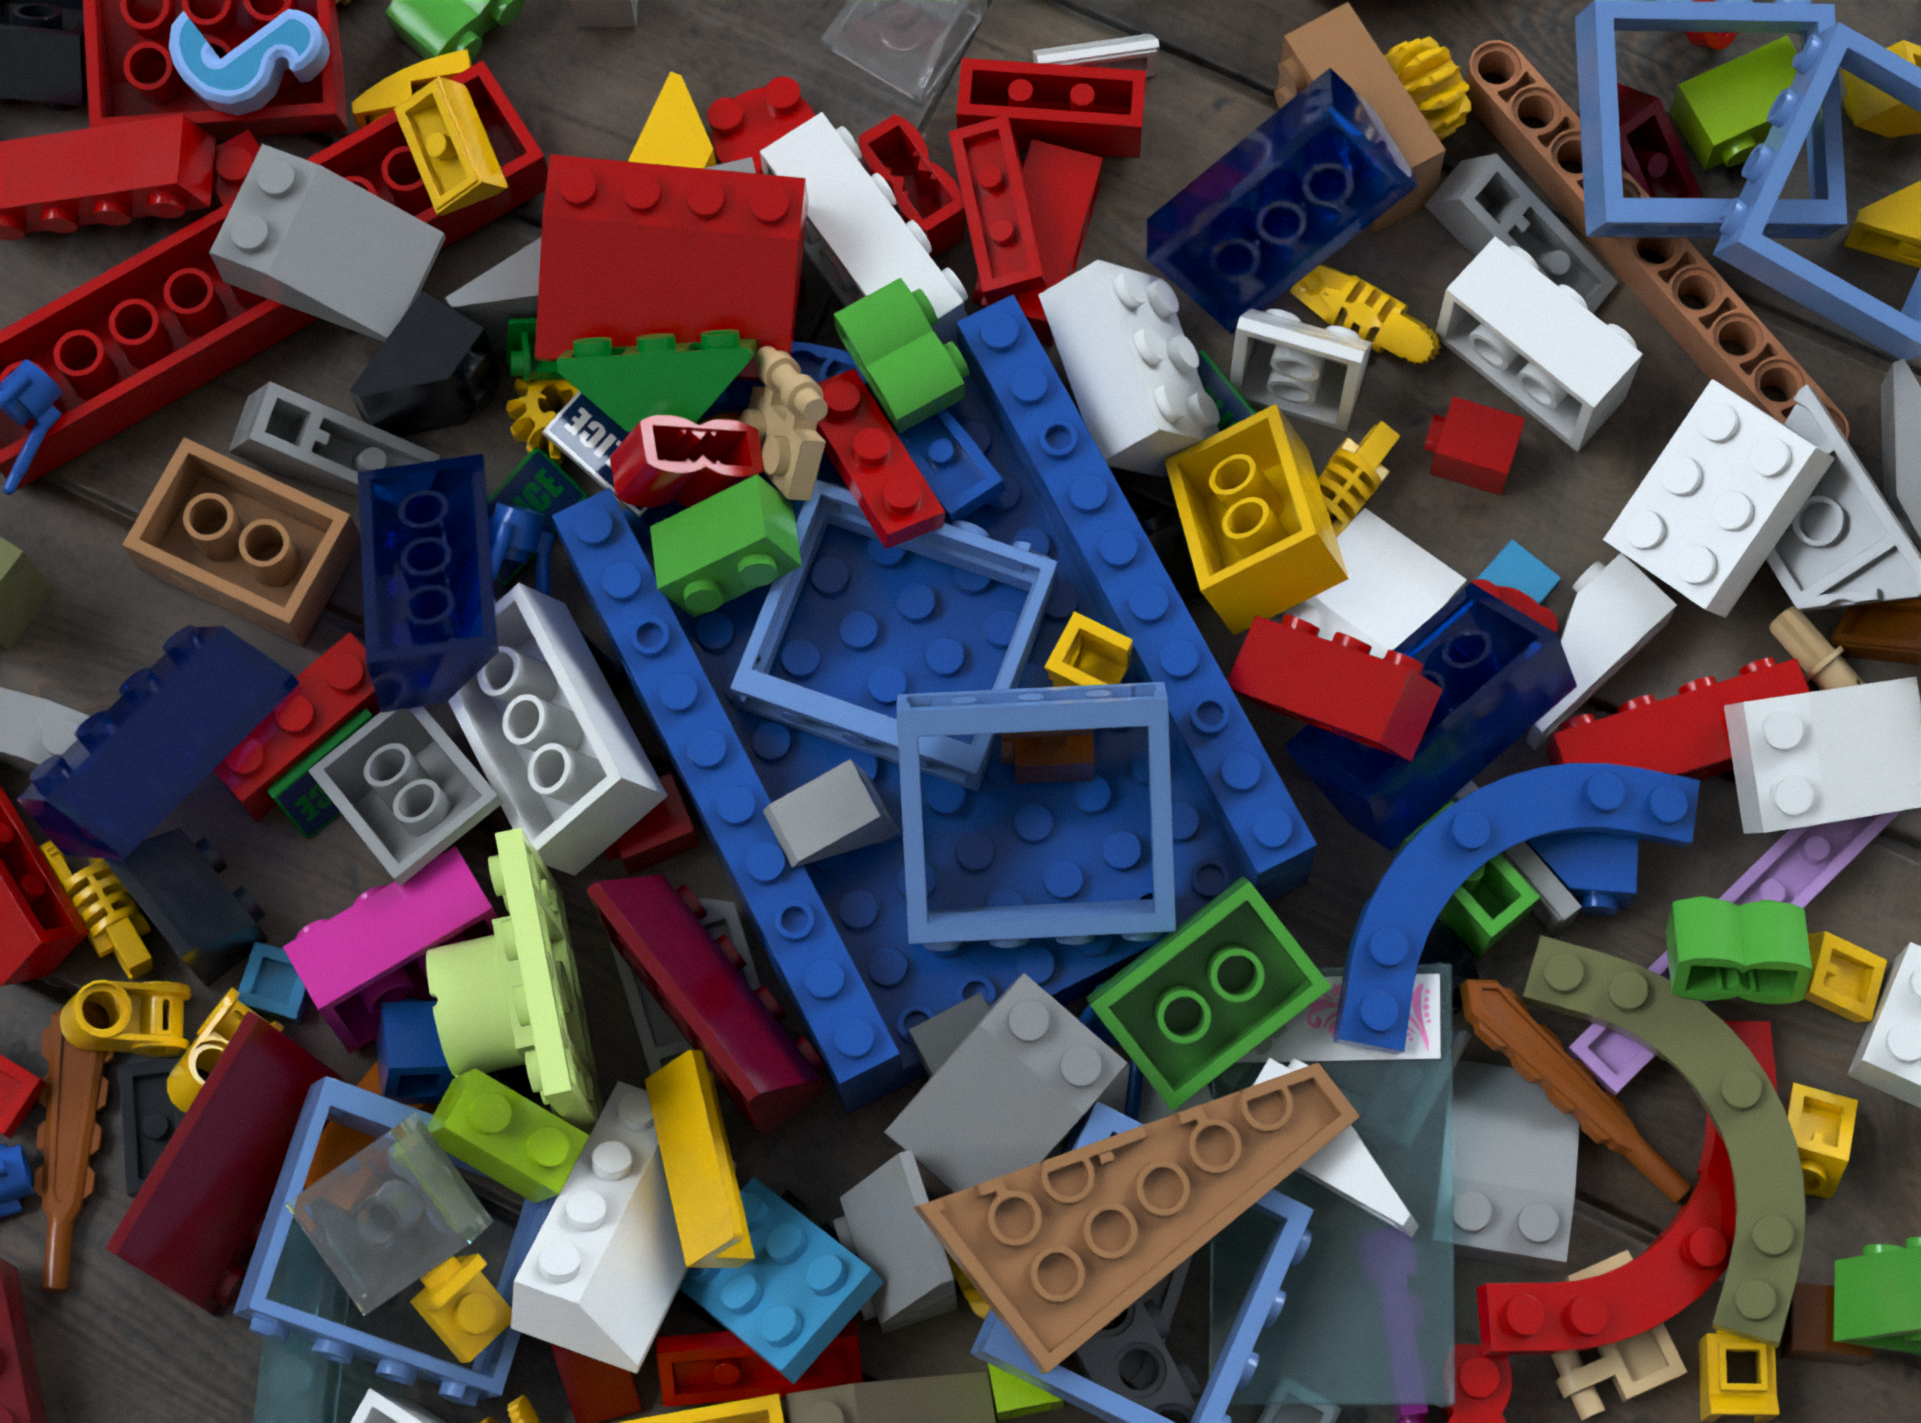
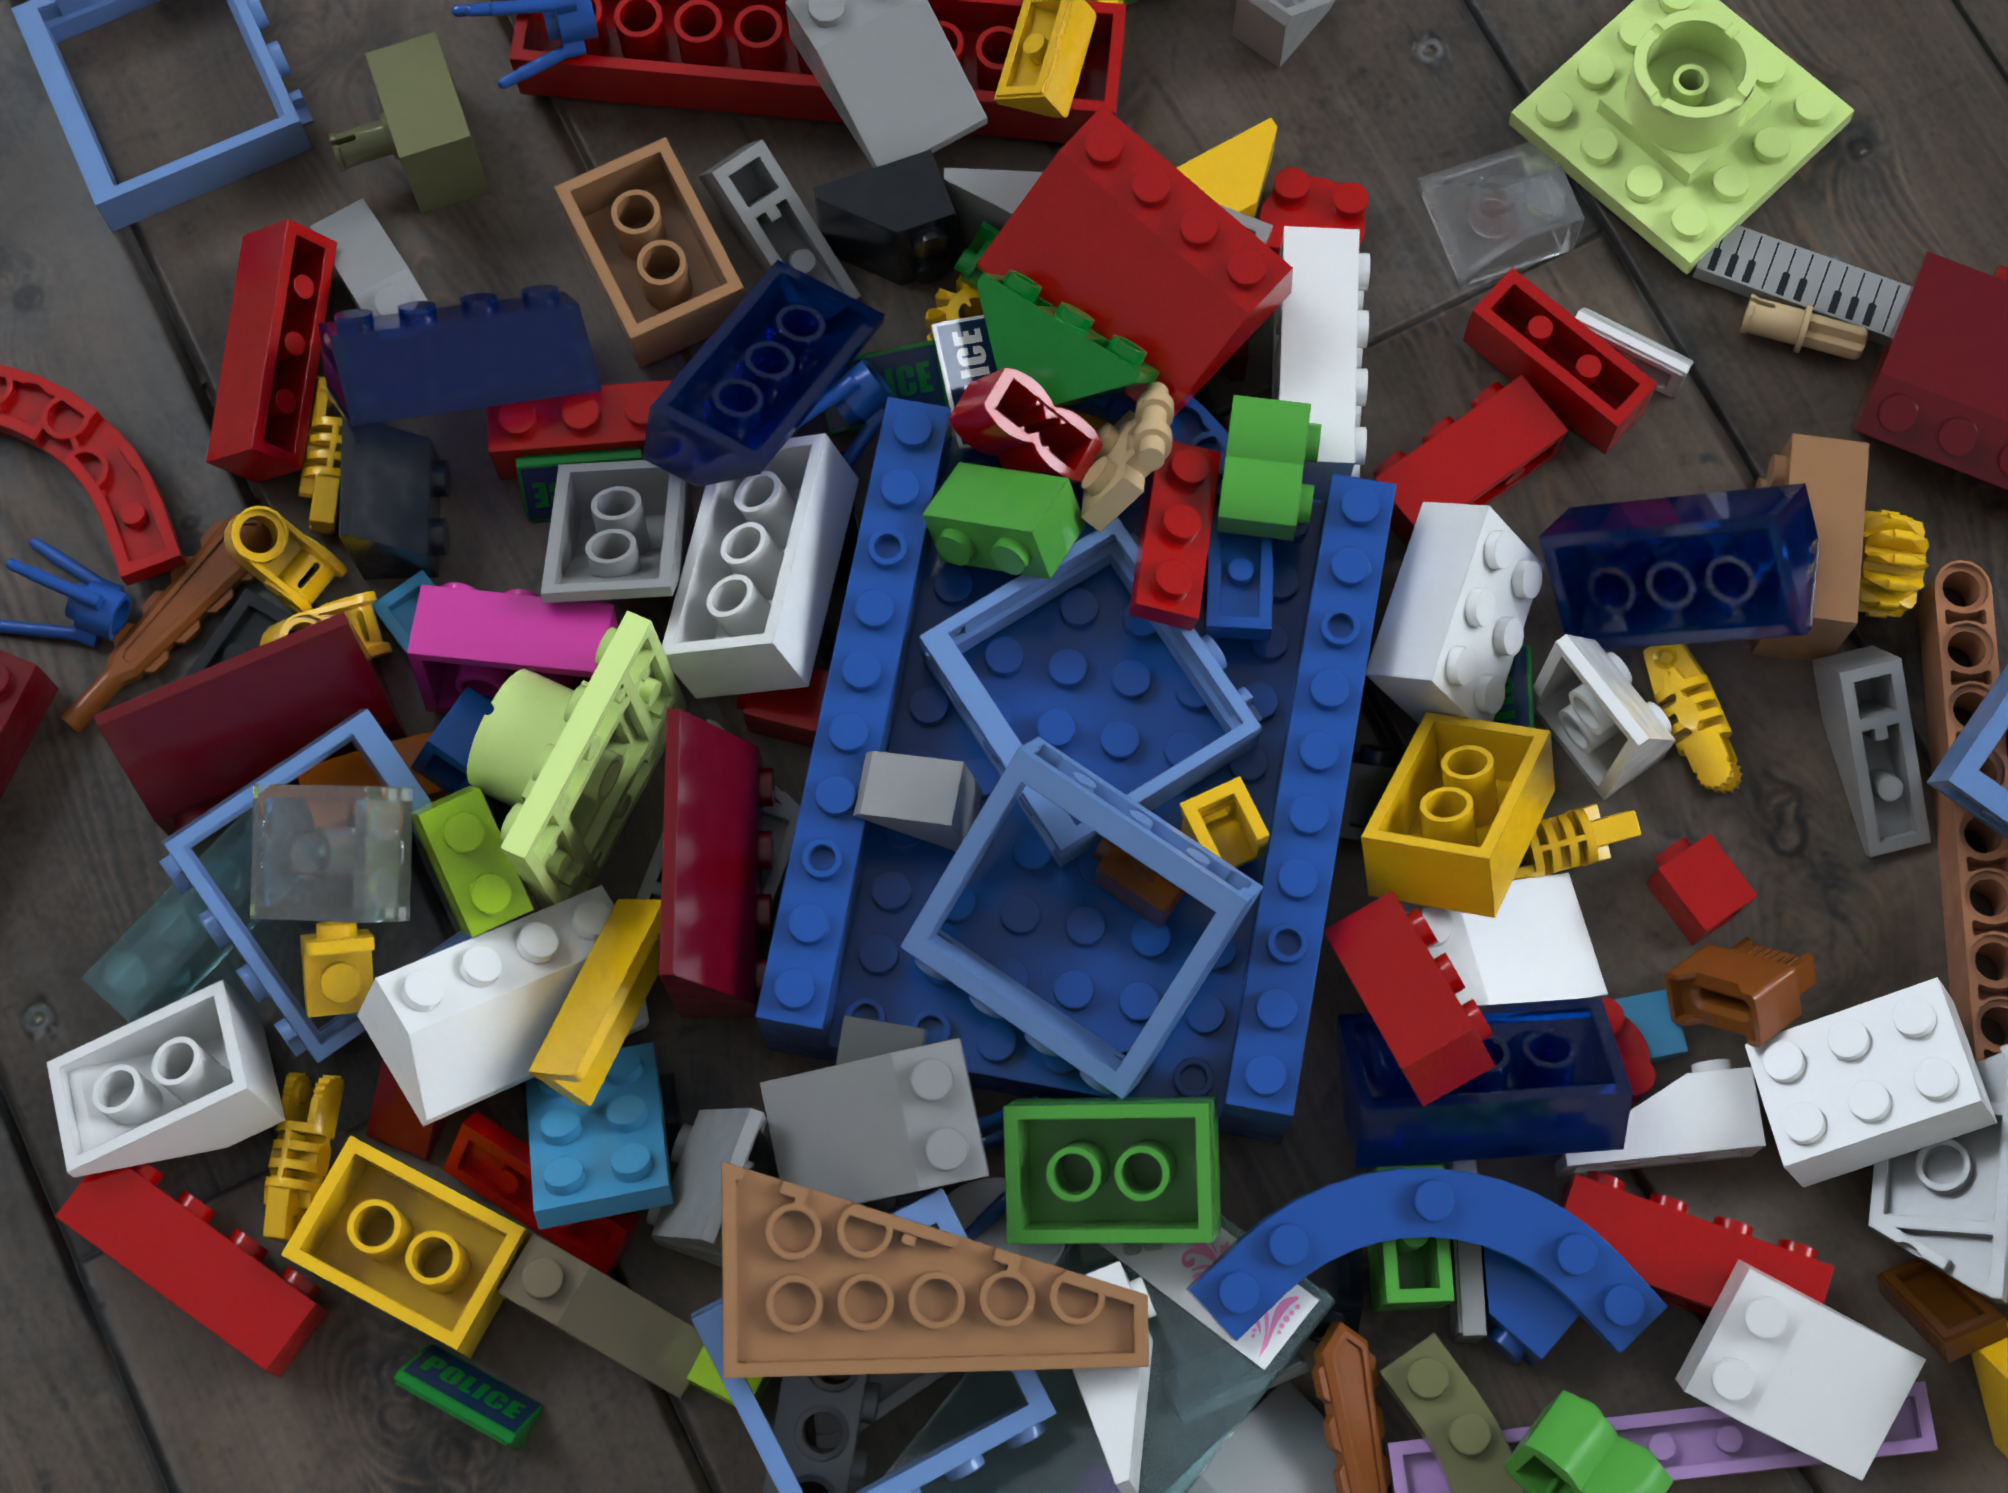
camera: 35 degrees right, 0 degrees up
(920, 186) = (1396, 346): red brick -> none
(997, 209) = (1446, 410): red plate -> none
(1537, 342) = (1818, 840): white brick -> none
(1566, 500) = (1740, 989): none -> dark orange piece
(1814, 653) = (1857, 1274): tan axle -> none

